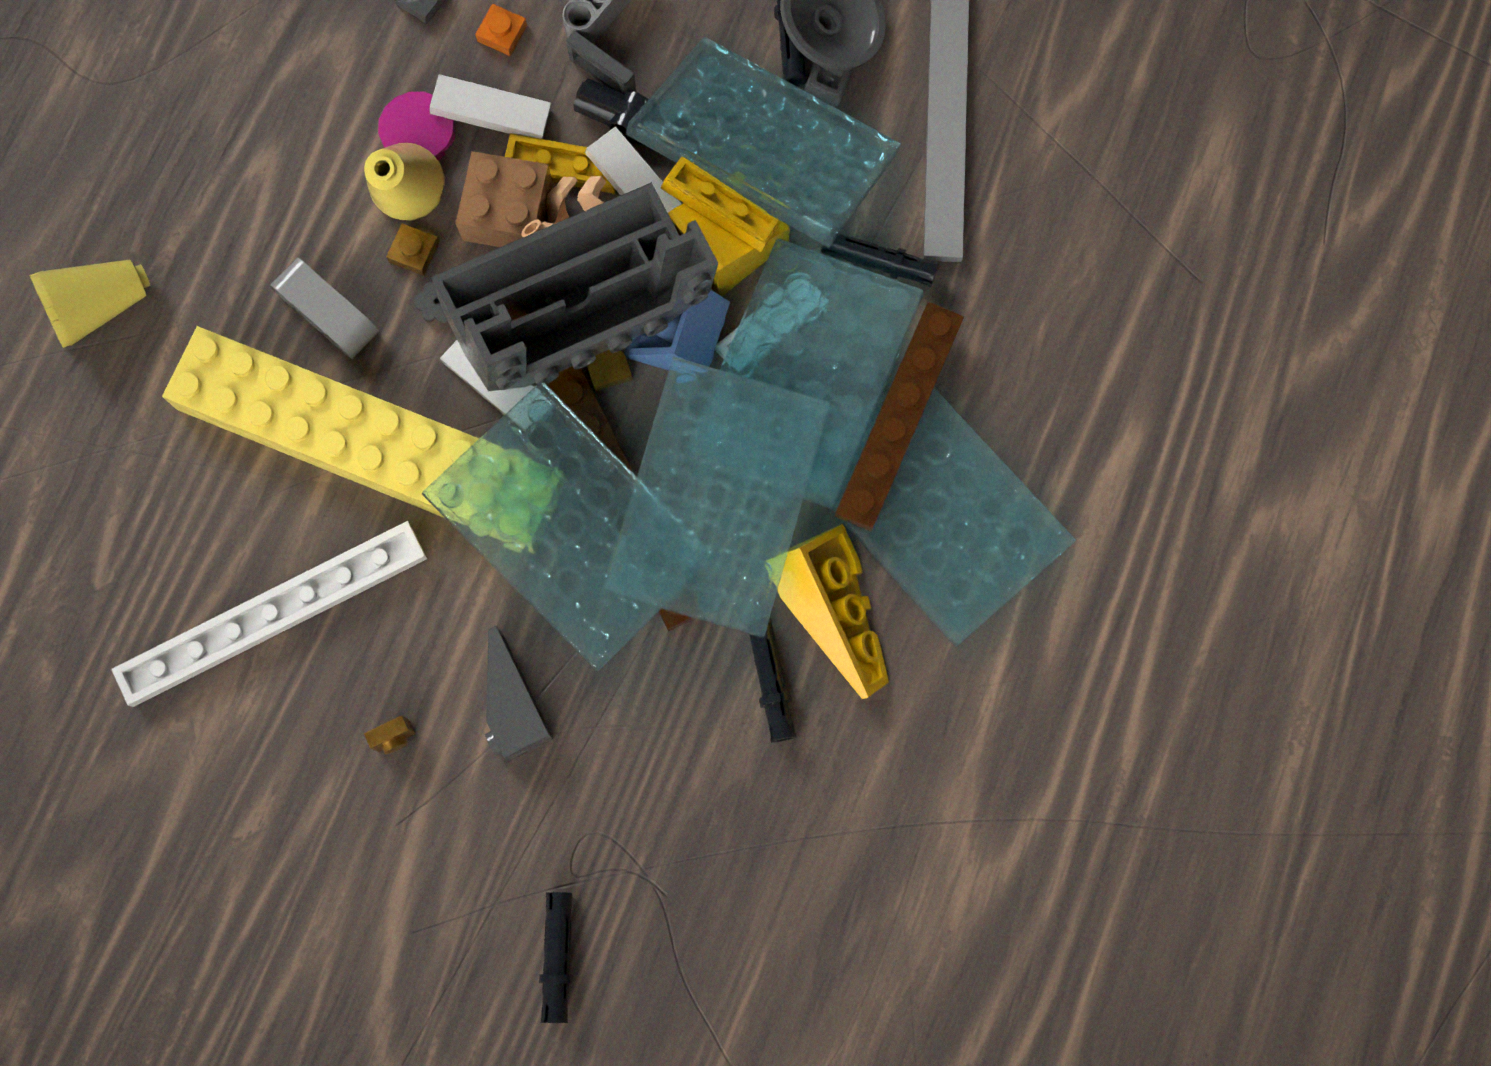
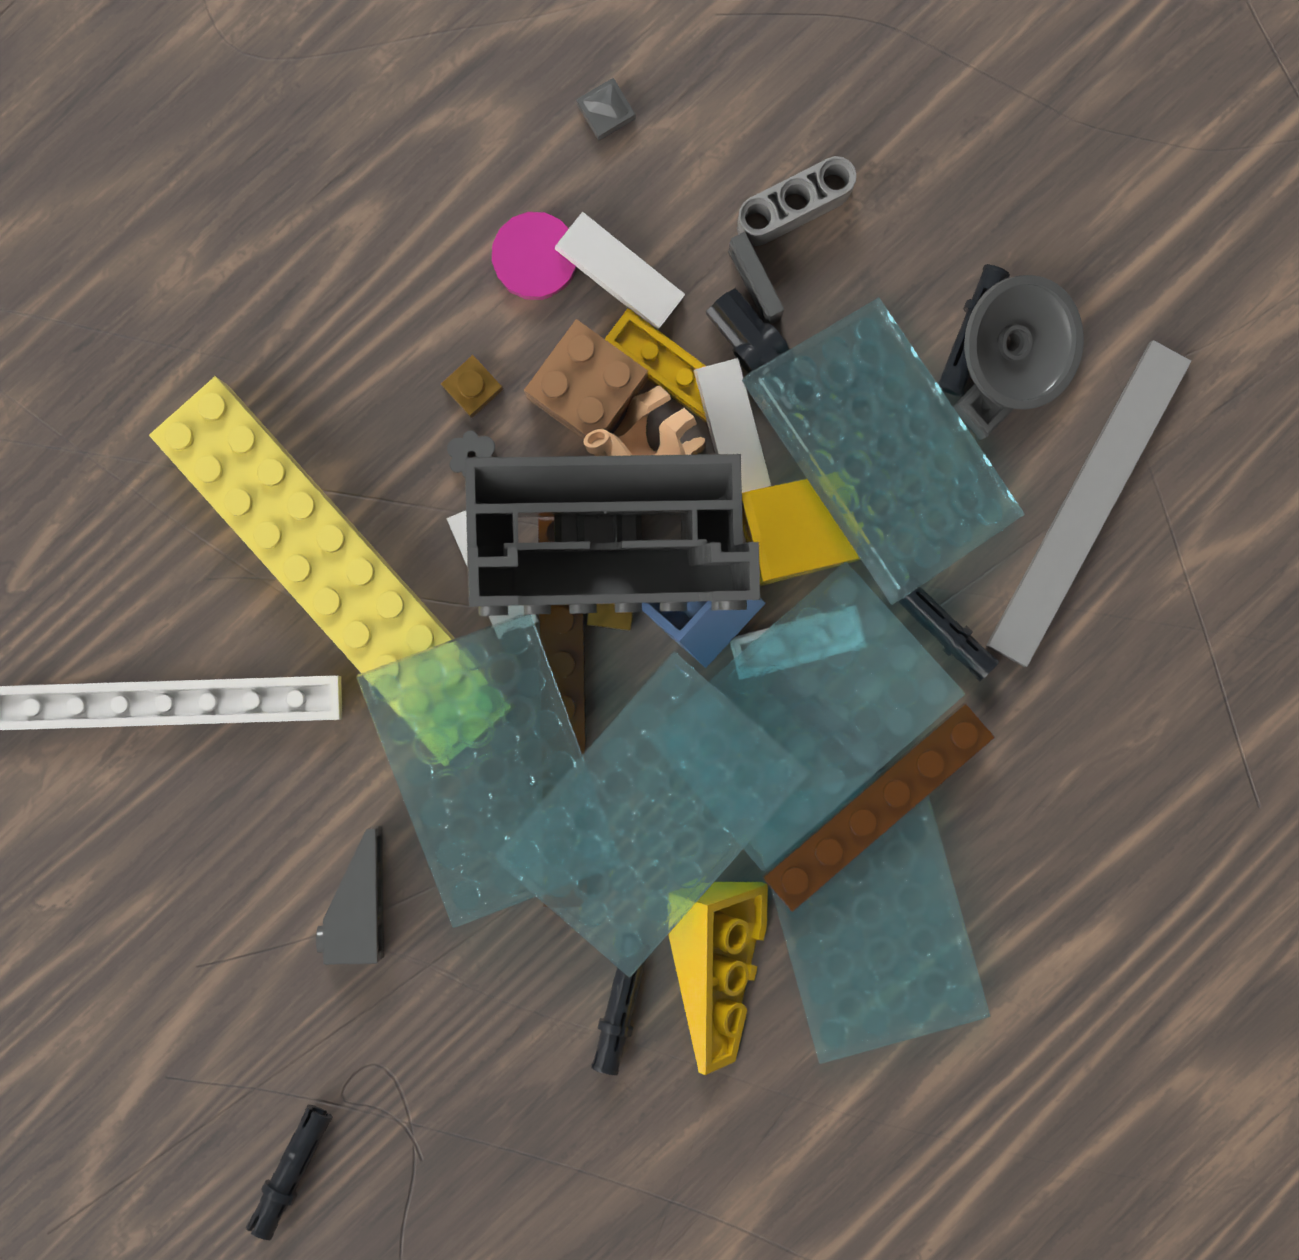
camera: 30 degrees right, 10 degrees up
(88, 296) = (120, 286): light yellow cone -> none
(324, 308) = (353, 410): light grey beam -> none
(390, 735) = (226, 883): pearl gold plate -> none
(404, 180) = (496, 311): light yellow cone -> none
(501, 29) = (672, 185): orange plate -> none
(720, 204) = (802, 505): yellow tile -> none

